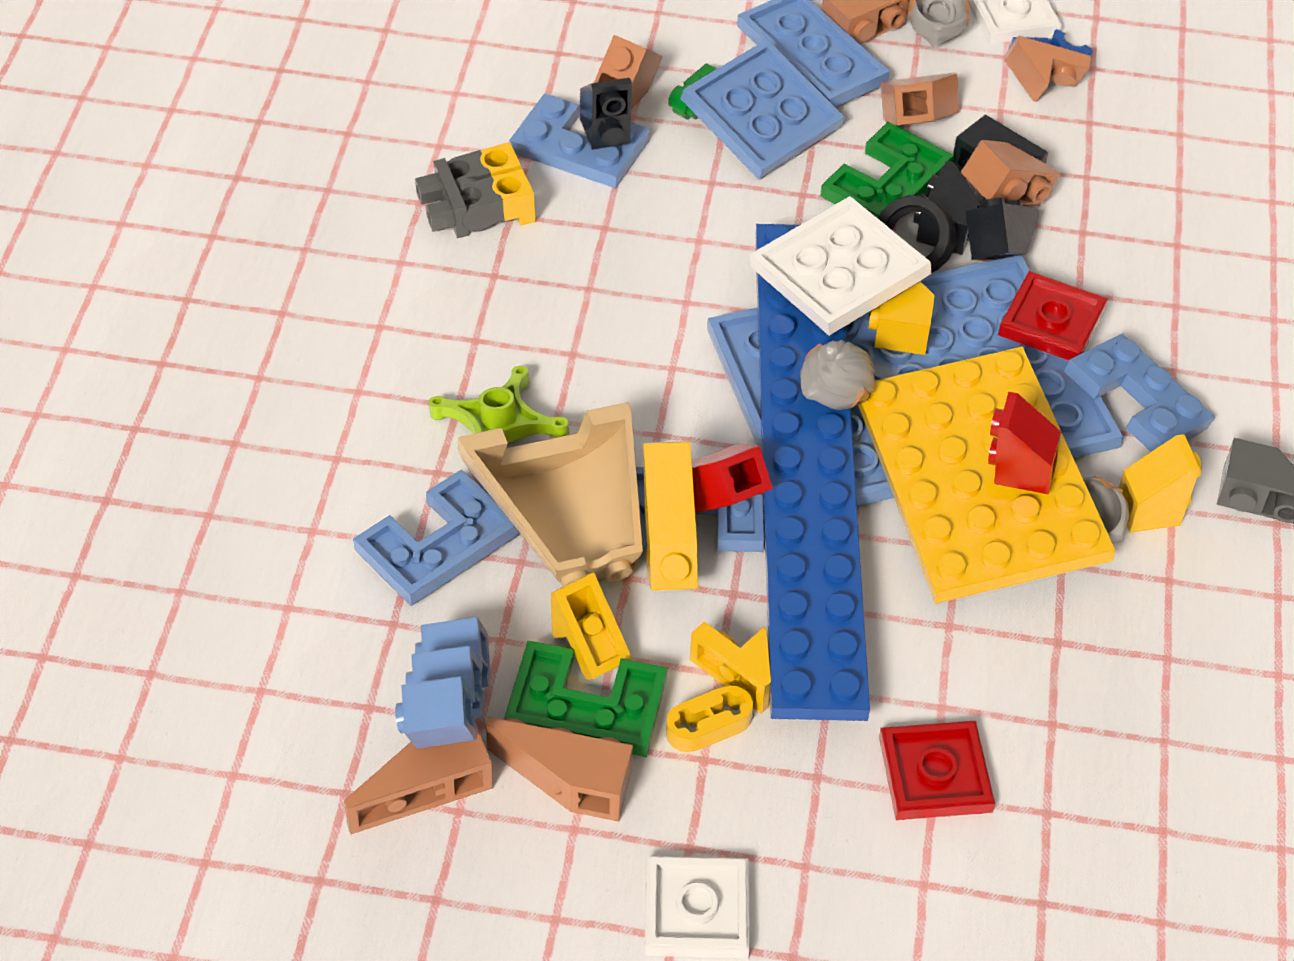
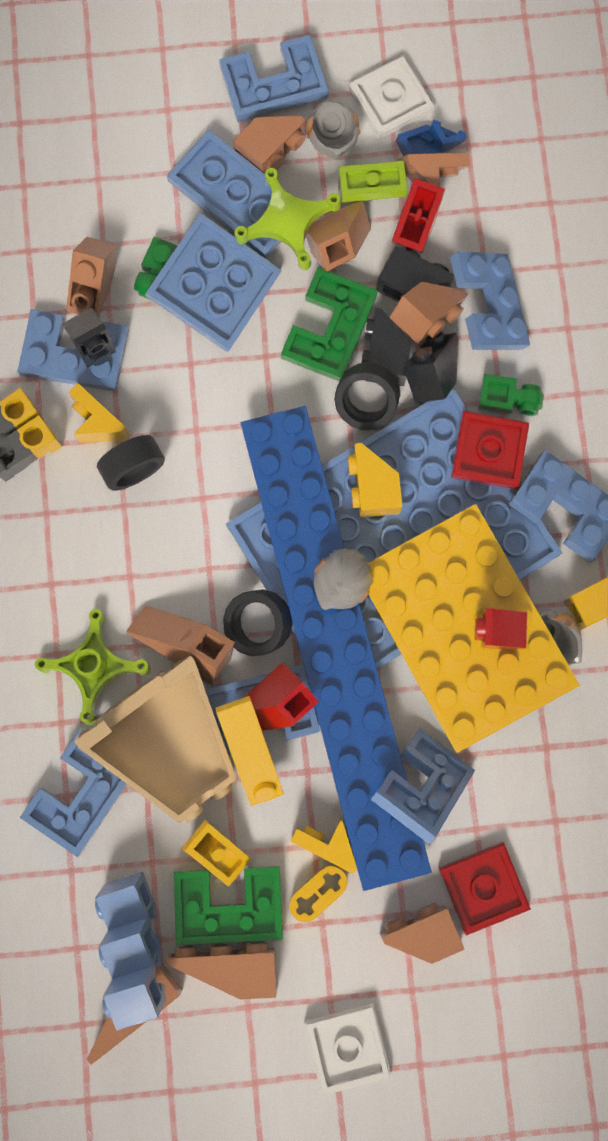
camera: 15 degrees left, 30 degrees up
(585, 198) = (101, 424): none -> yellow slope
(607, 213) = (130, 462): none -> black tyre
(652, 414) = (181, 637): none -> nougat slope
(702, 392) = (233, 627): none -> black tyre
(839, 793) = (427, 936): none -> nougat slope
(840, 265) = (320, 468): white plate -> none
(865, 64) = (287, 219): none -> lime piece
(882, 612) = (429, 808): none -> medium blue plate
(973, 60) = (372, 181): none -> lime panel
(1020, 96) = (418, 215): none -> red slope
(1088, 277) = (500, 394): none -> green plate
(1097, 205) = (505, 324): none -> medium blue plate

